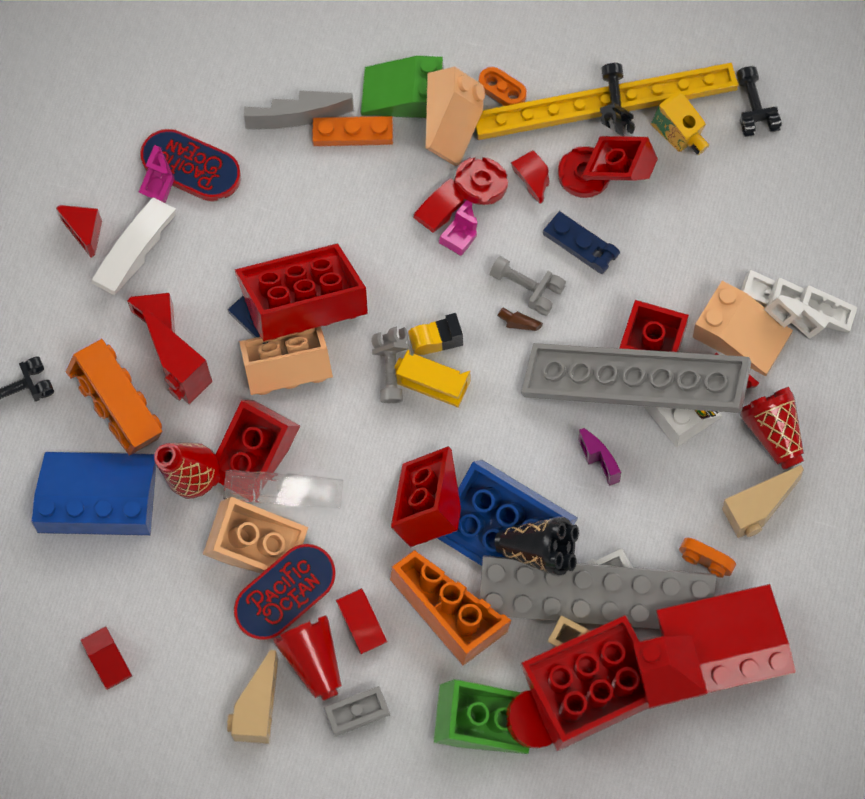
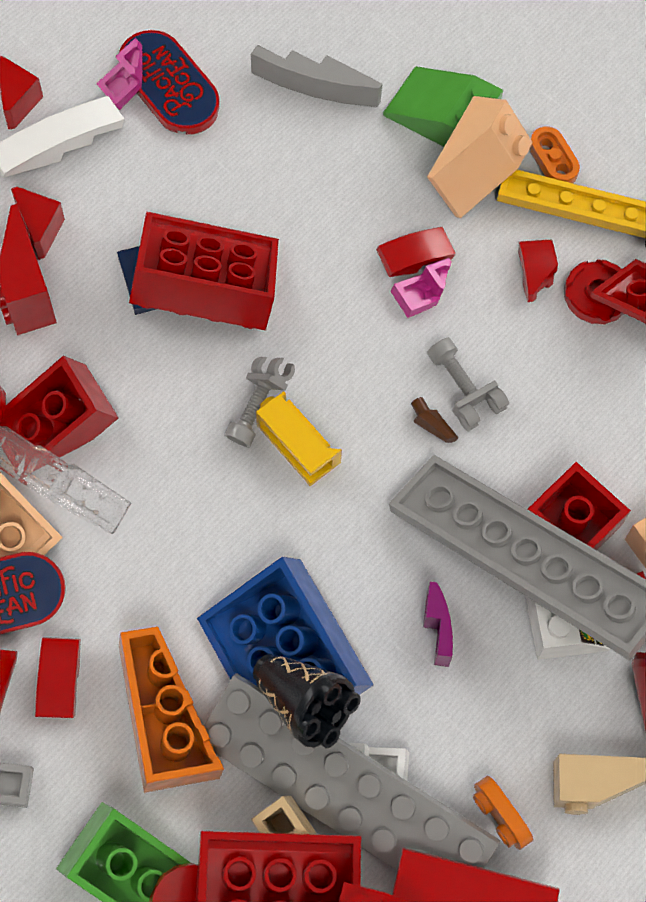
camera: 20 degrees right, 0 degrees up
(286, 361) = (144, 338): light nougat slope -> none
(353, 131) = (363, 127): orange plate -> none
(427, 498) = (209, 573): red slope -> none
(436, 336) = (328, 392): leg -> none
(481, 181) = (474, 246): tile -> none
(580, 242) = (551, 367): dark blue plate -> none

